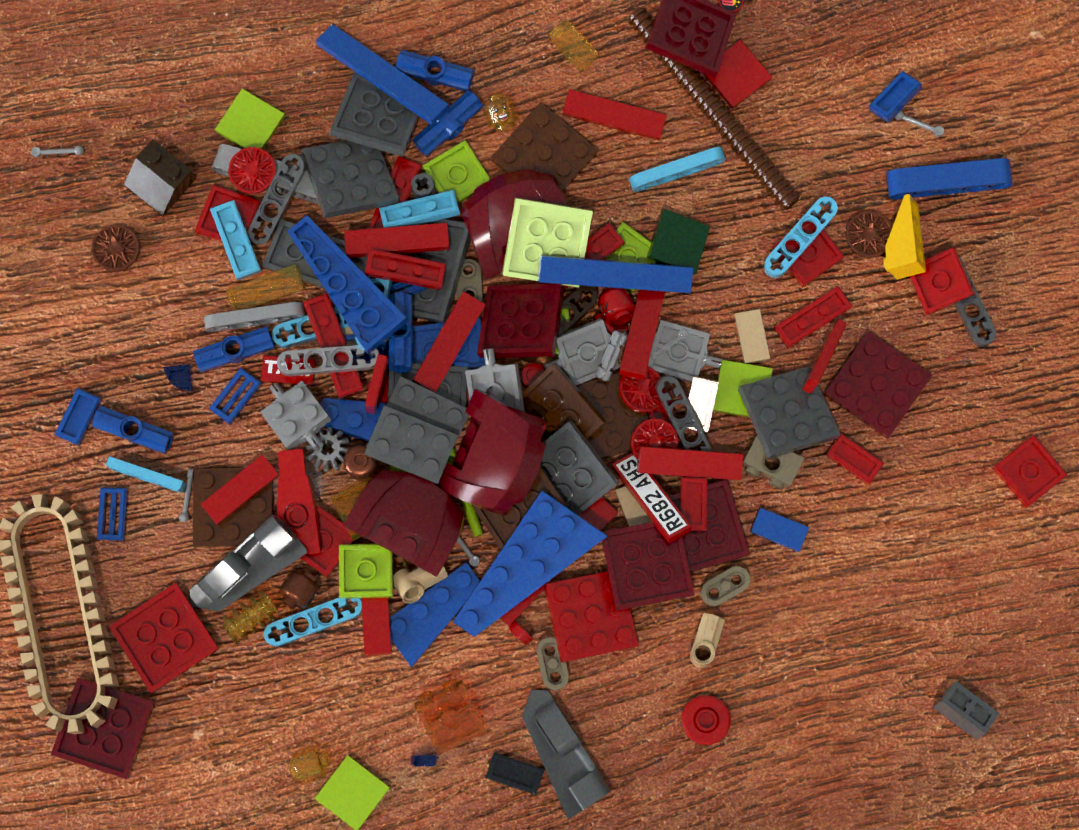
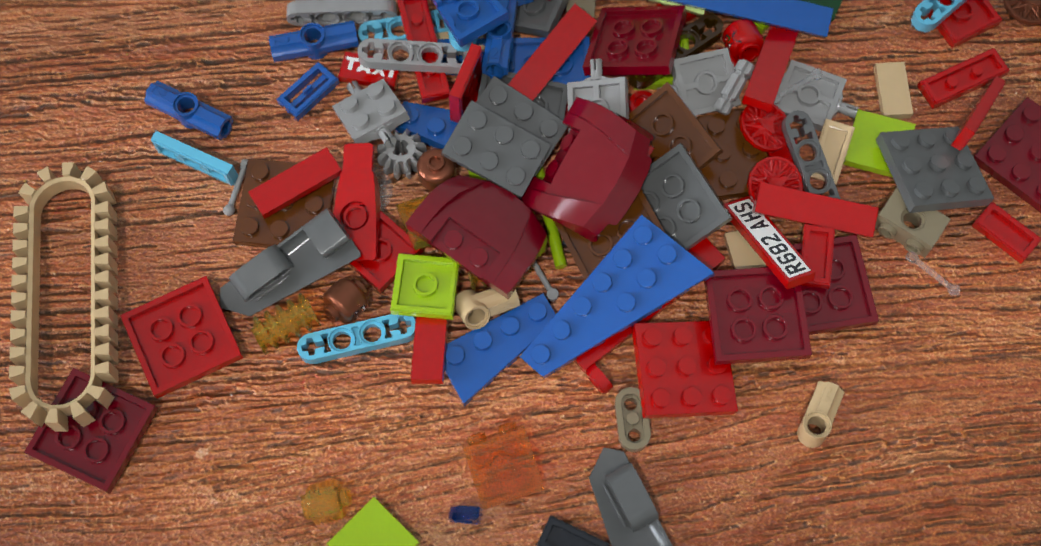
camera: 10 degrees right, 10 degrees down
(78, 417) = (130, 94): blue tile -> none
(112, 520) = (145, 220): blue tile -> none
(180, 376) = (251, 65): clear blue tile -> none
(706, 720) = (812, 509): red wheel -> none
(724, 586) = (845, 356): dark tan plate -> none
(779, 530) = (914, 300): blue tile -> none
(812, 516) = (912, 257): none -> clear hinge

